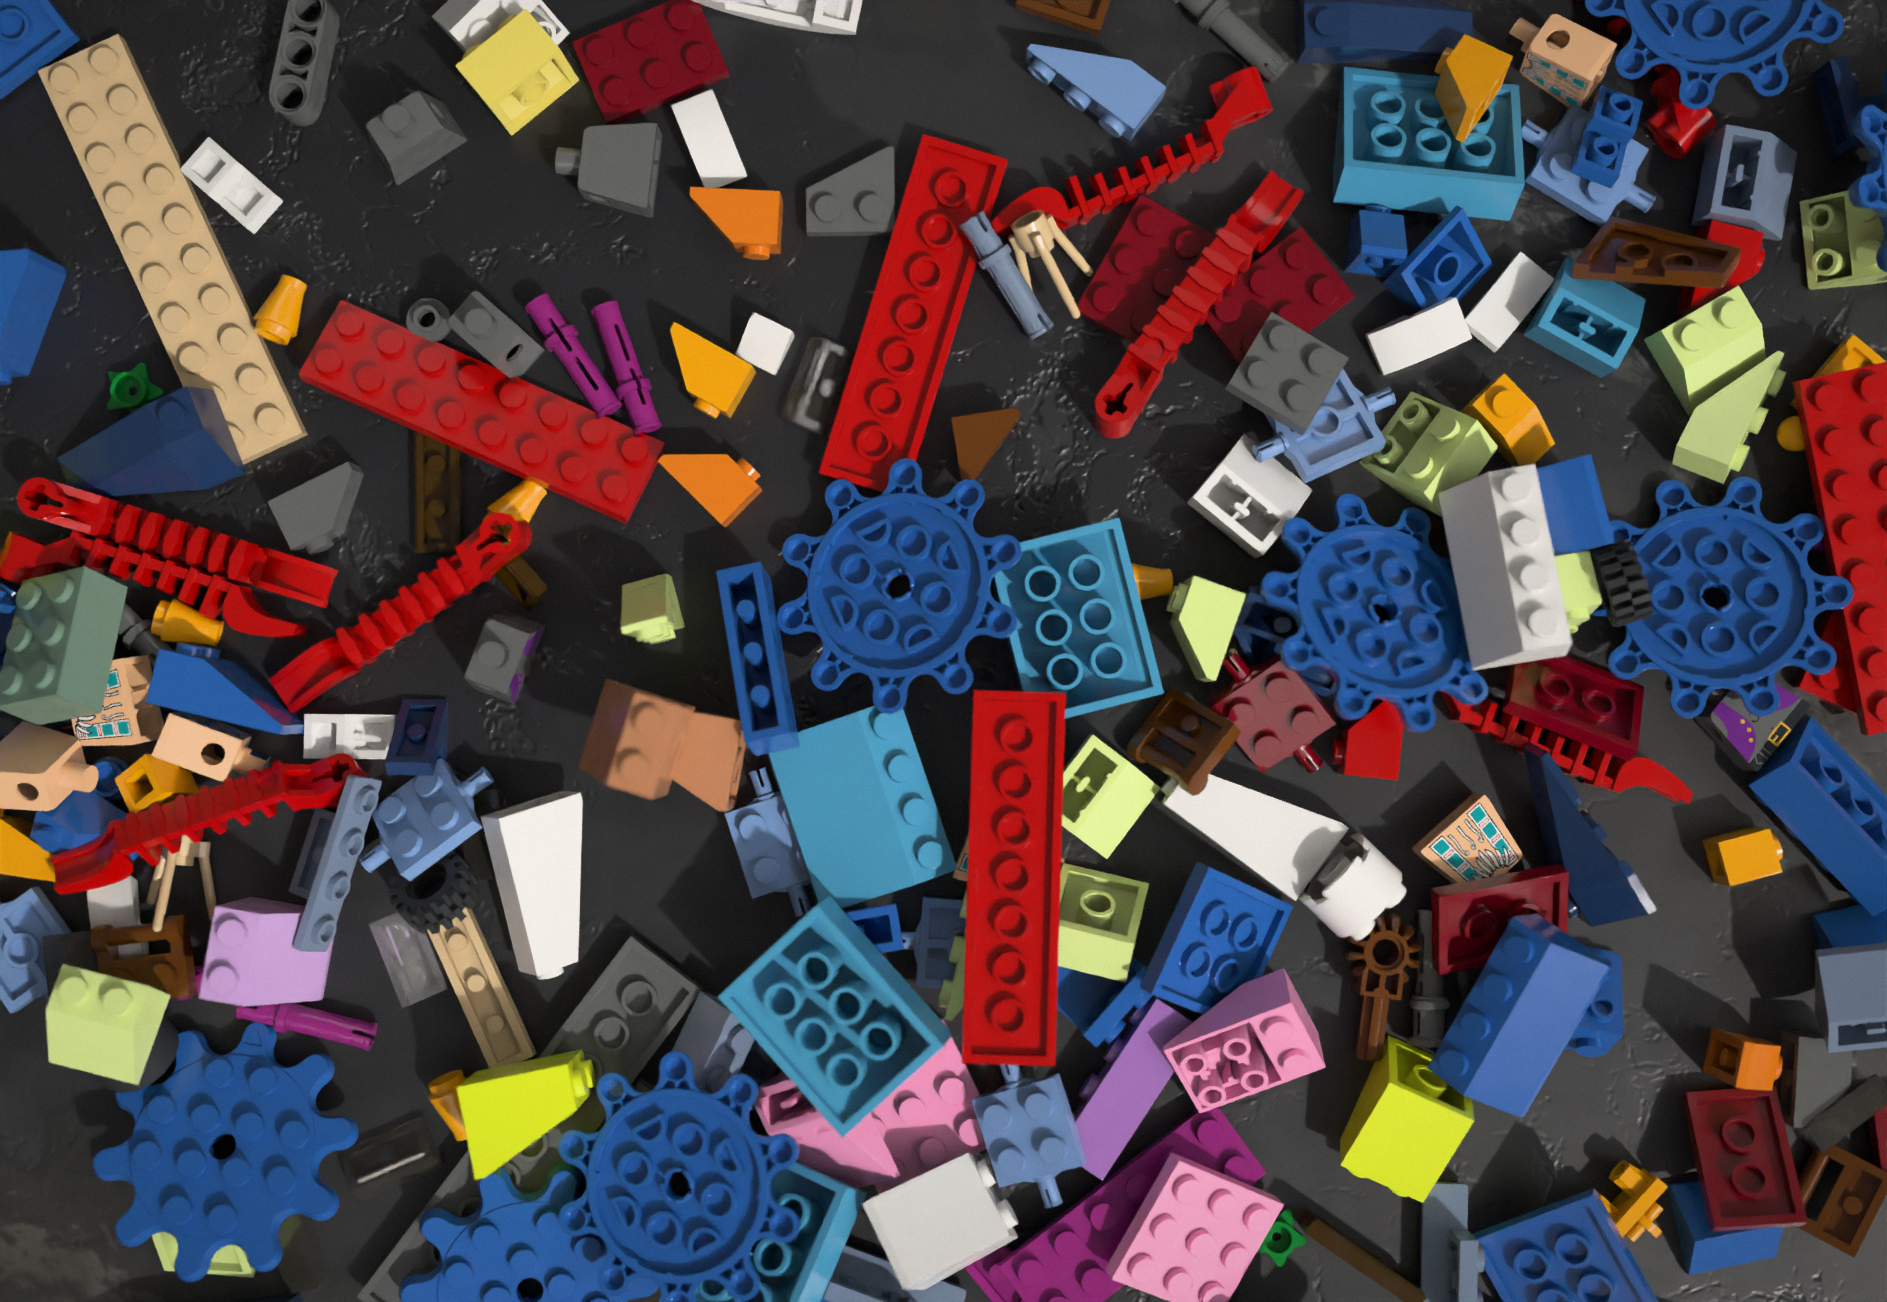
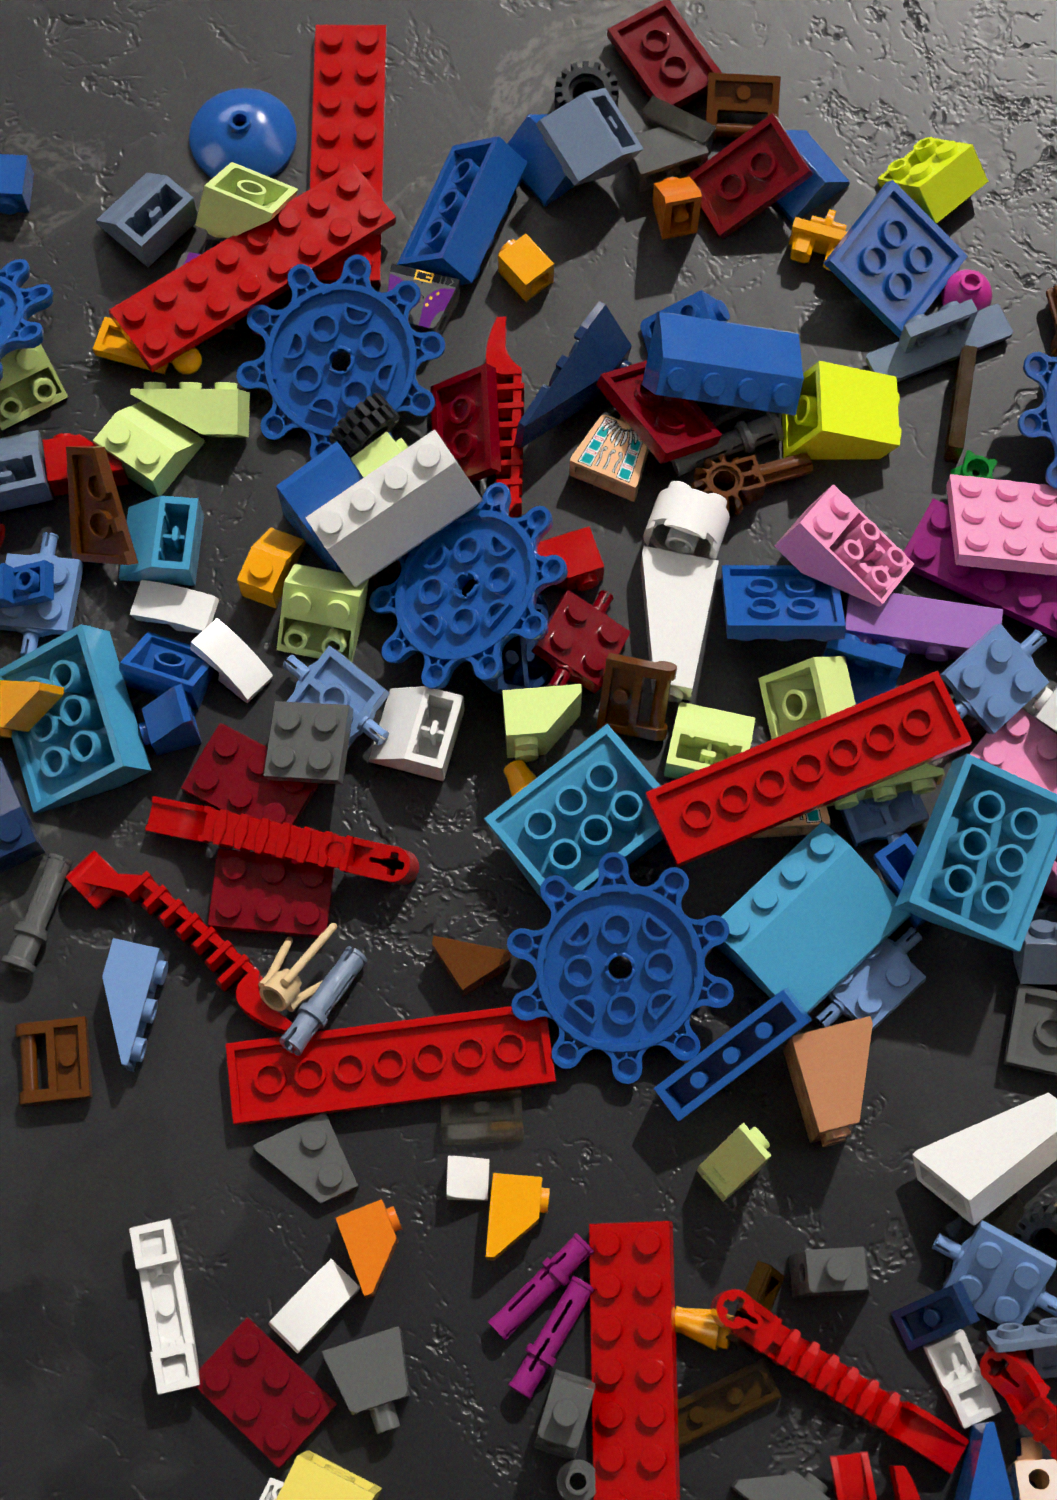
camera: 115 degrees left, 15 degrees down
(636, 740) = (851, 1106): nougat slope -> none
(715, 482) = (602, 1163): orange slope -> none

